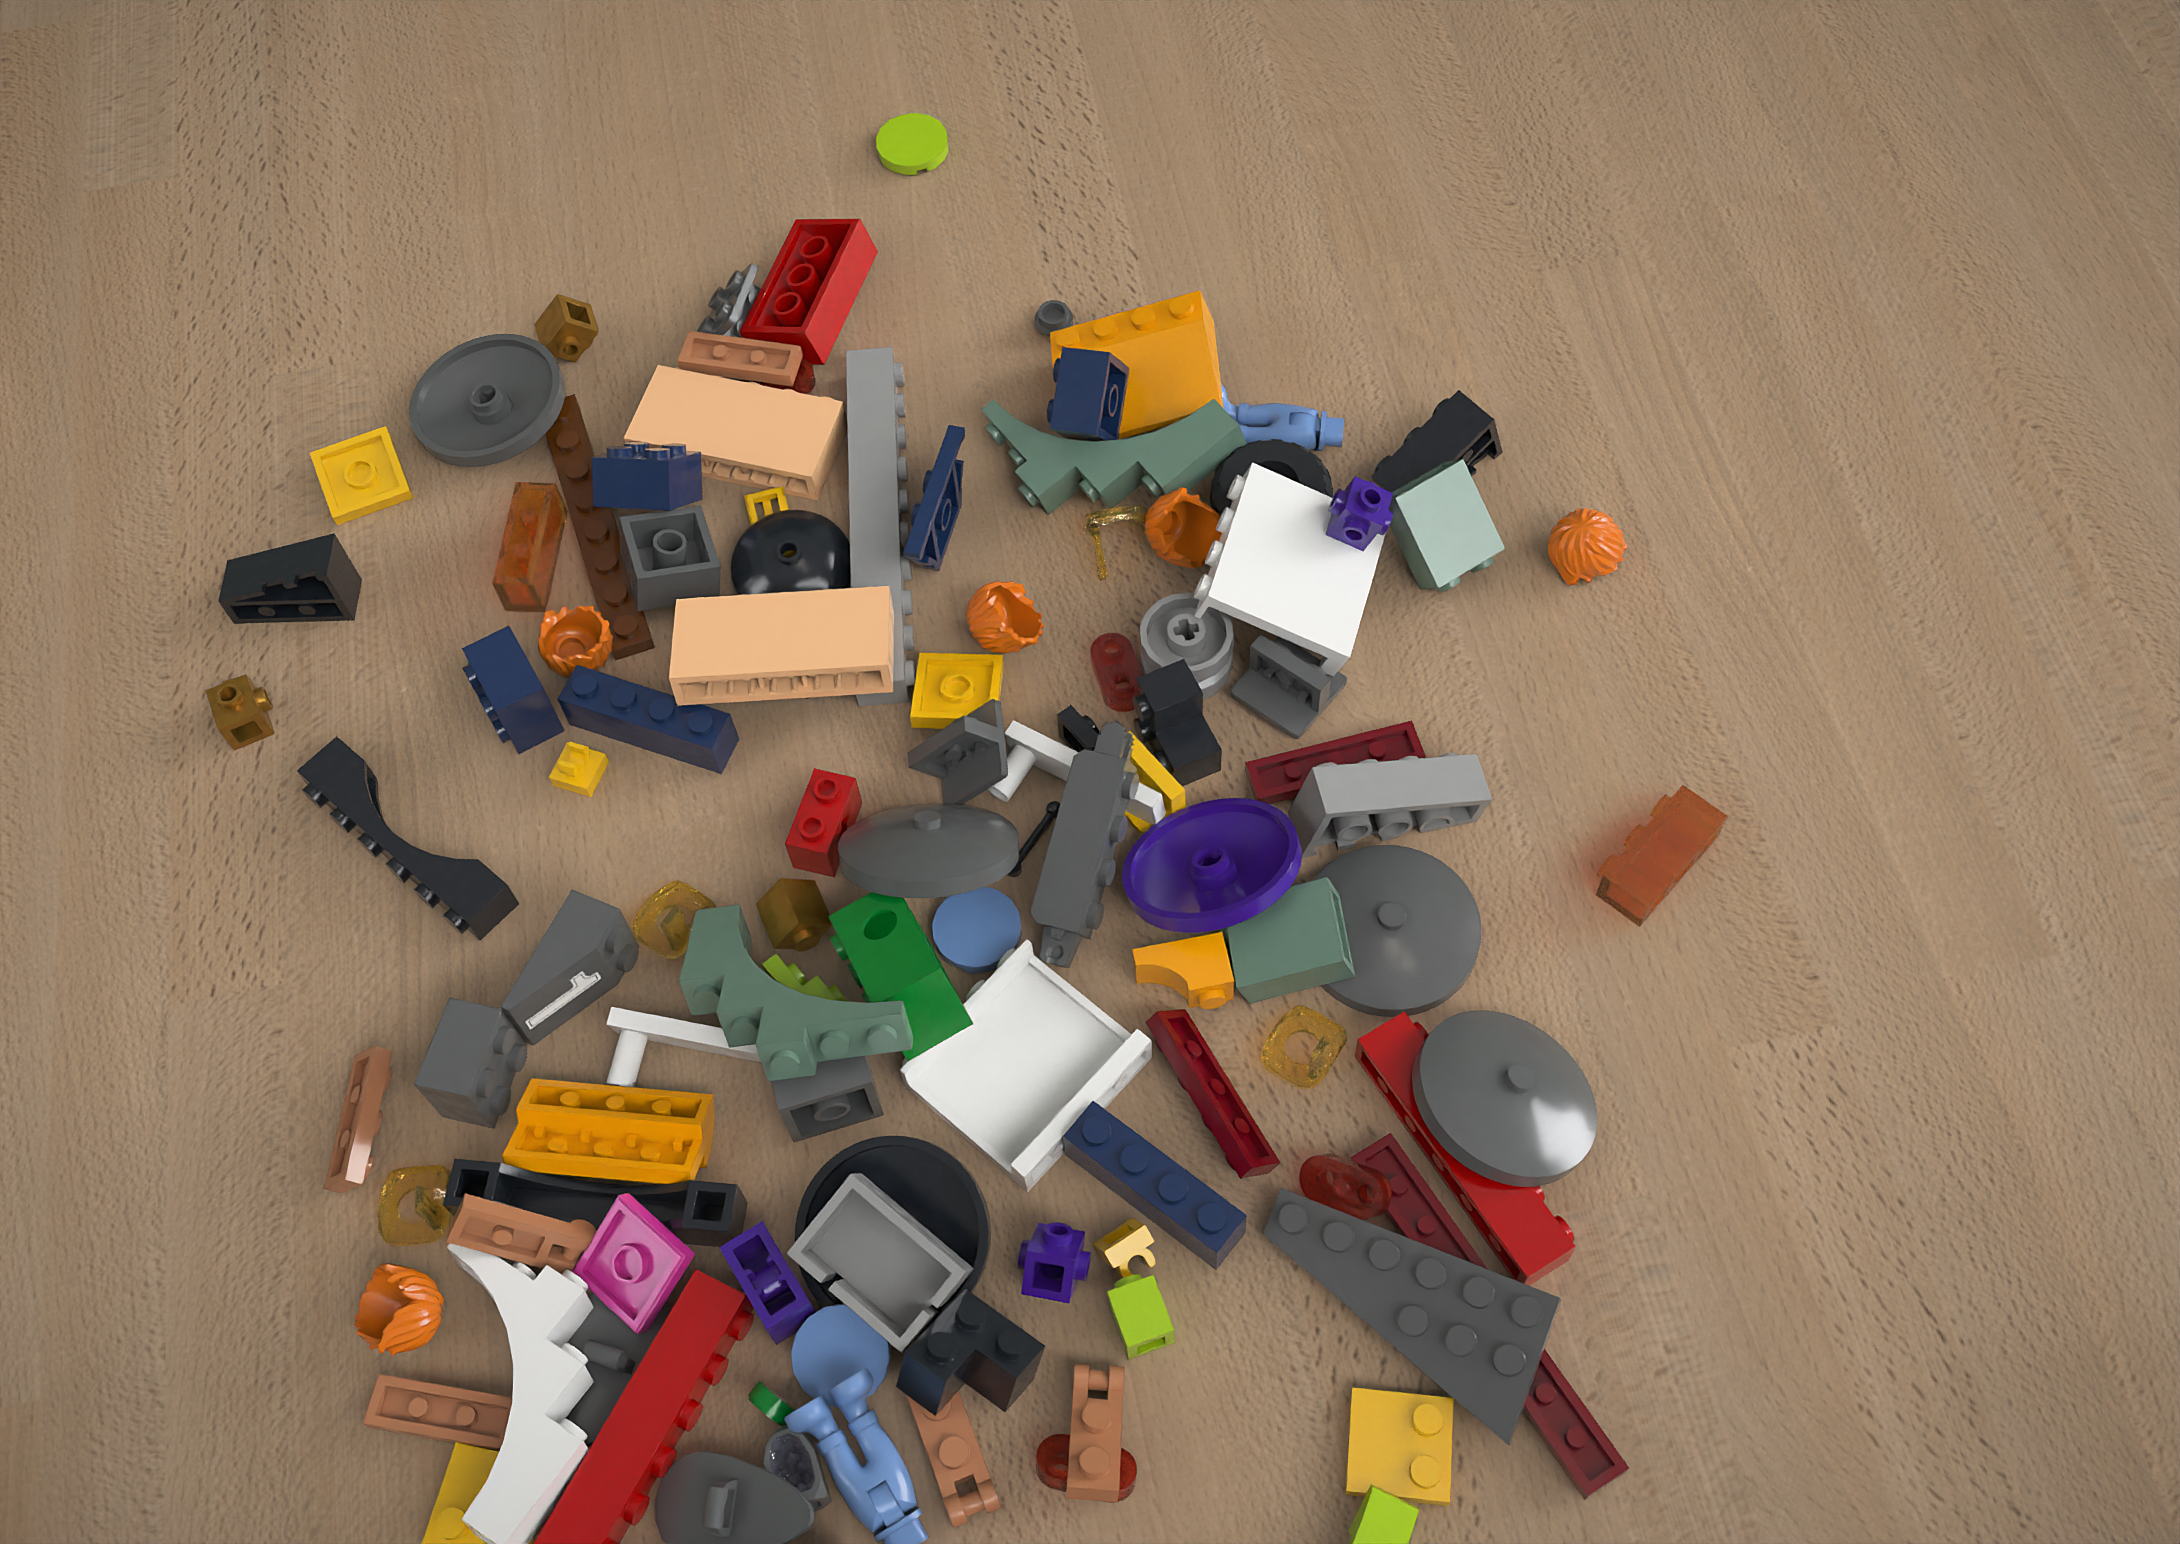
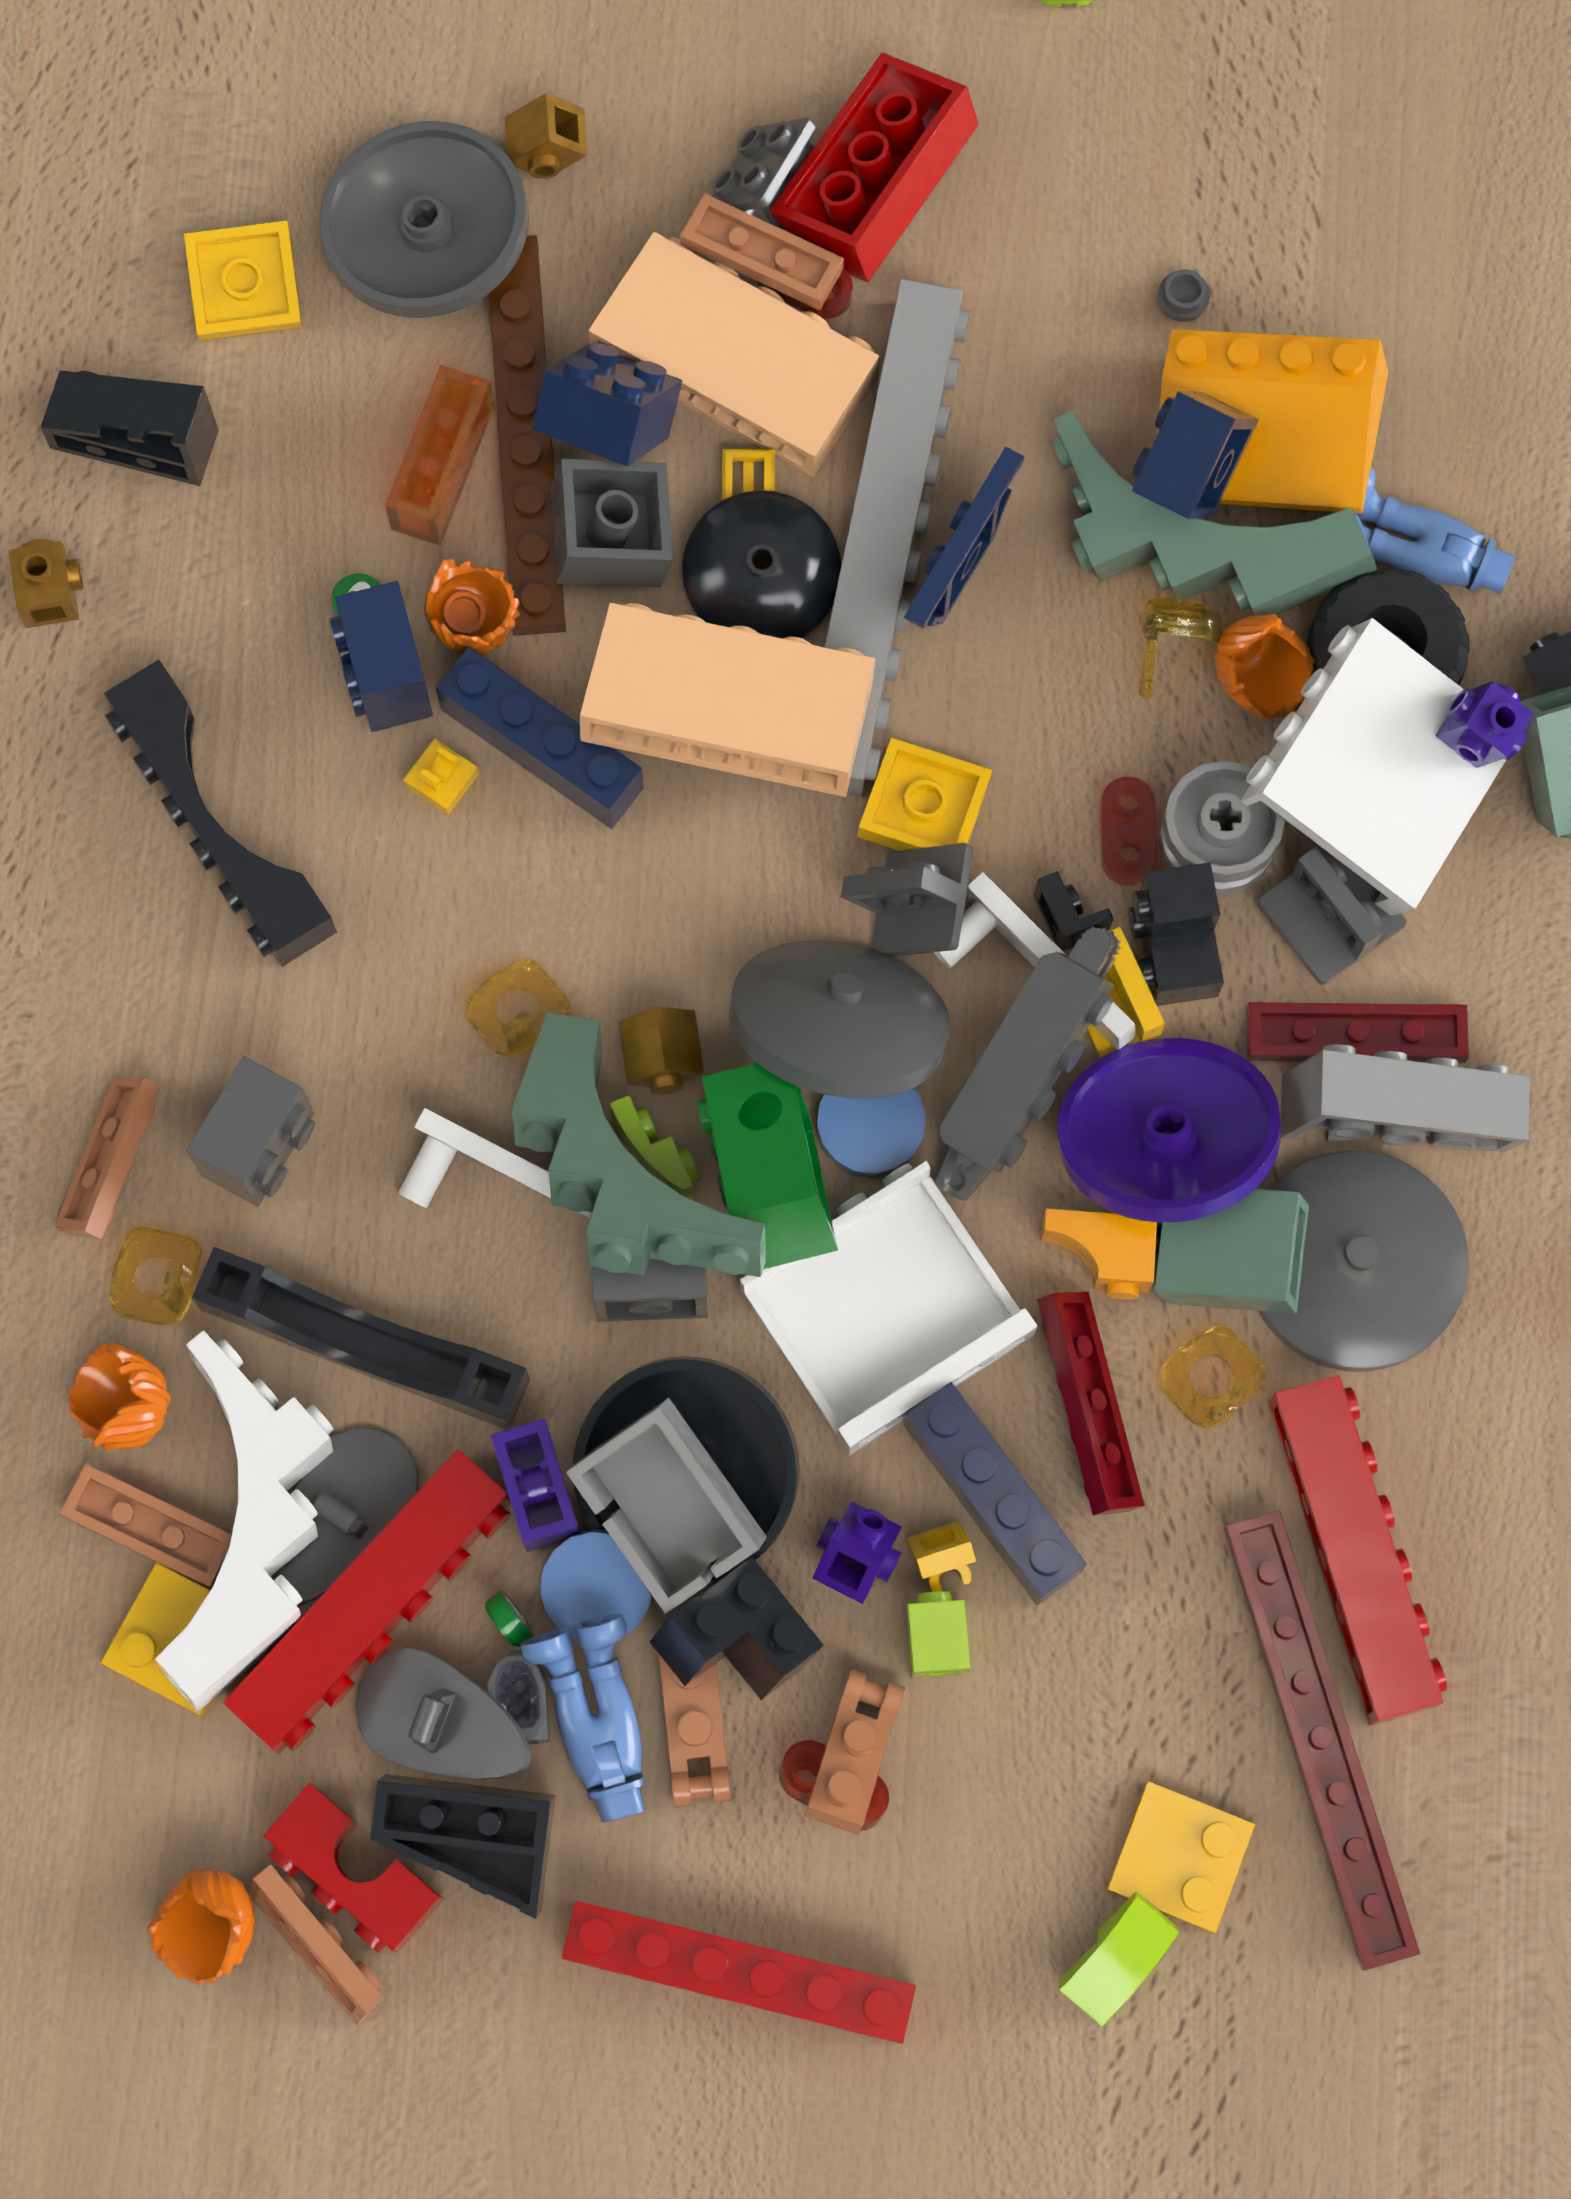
camera: 10 degrees right, 15 degrees up
(519, 1234) = (271, 1355): nougat plate -> none
(571, 967) = (392, 1041): dark grey slope -> none
(612, 1132) = (394, 1258): light orange brick -> none
(633, 1263) = (389, 1419): dark pink tile -> none
(822, 818) = (722, 937): red brick -> none
(1003, 617) = (1007, 725): orange hair -> none
(1052, 811) = (1001, 994): black hinge -> none
(1348, 1187) = (1211, 1561): clear red plate -> none
(1446, 1315) = (1274, 1734): dark grey wing -> none
(1504, 1098) = (1421, 1509): dark grey dish -> none

